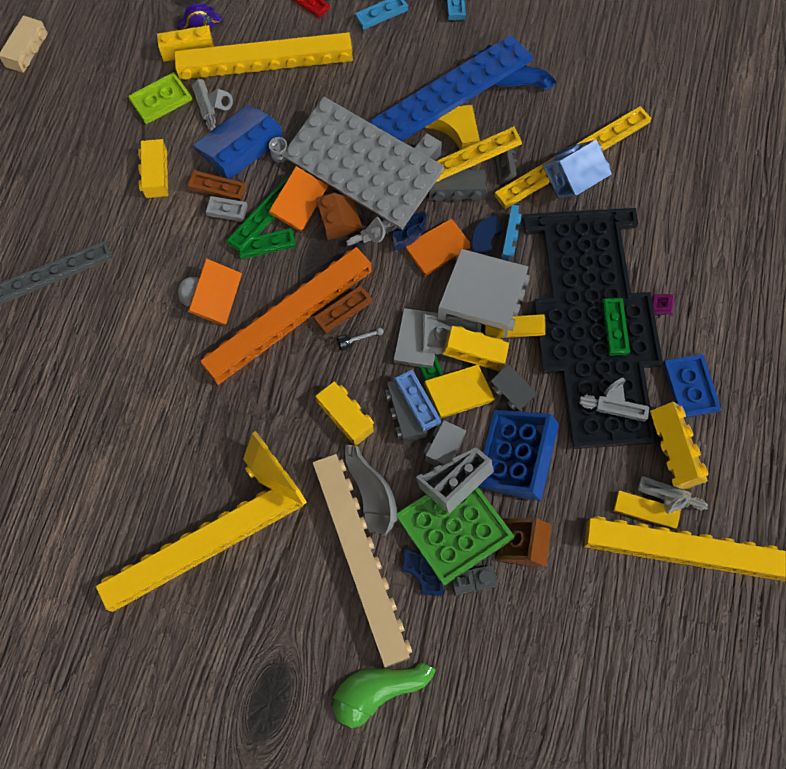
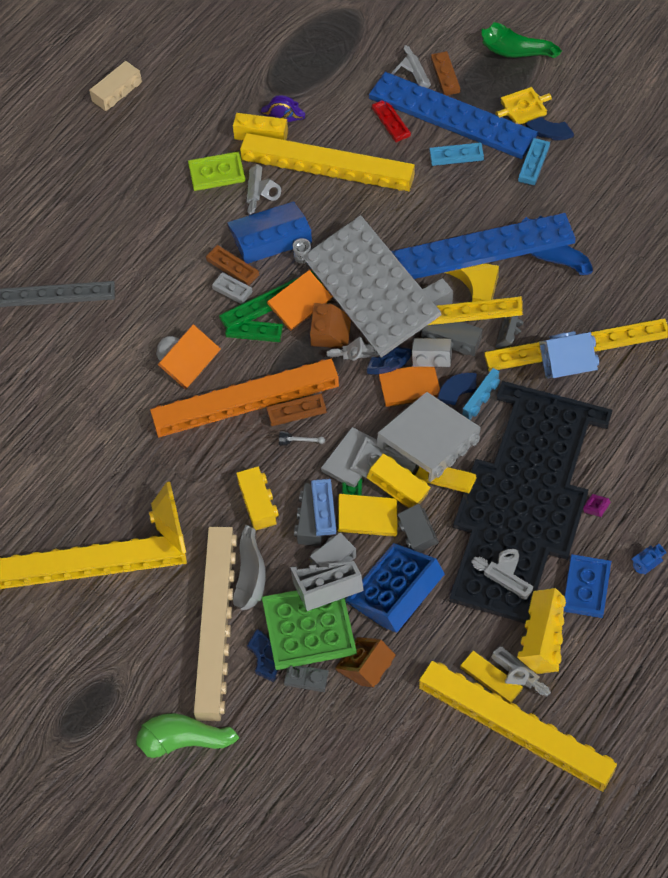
camera: 25 degrees right, 10 degrees down
(153, 168) = (183, 232): yellow brick -> none
(447, 208) = (432, 352): none -> light grey brick
(615, 326) = (538, 508): green tile -> none
(736, 340) = (648, 559): none -> blue hips

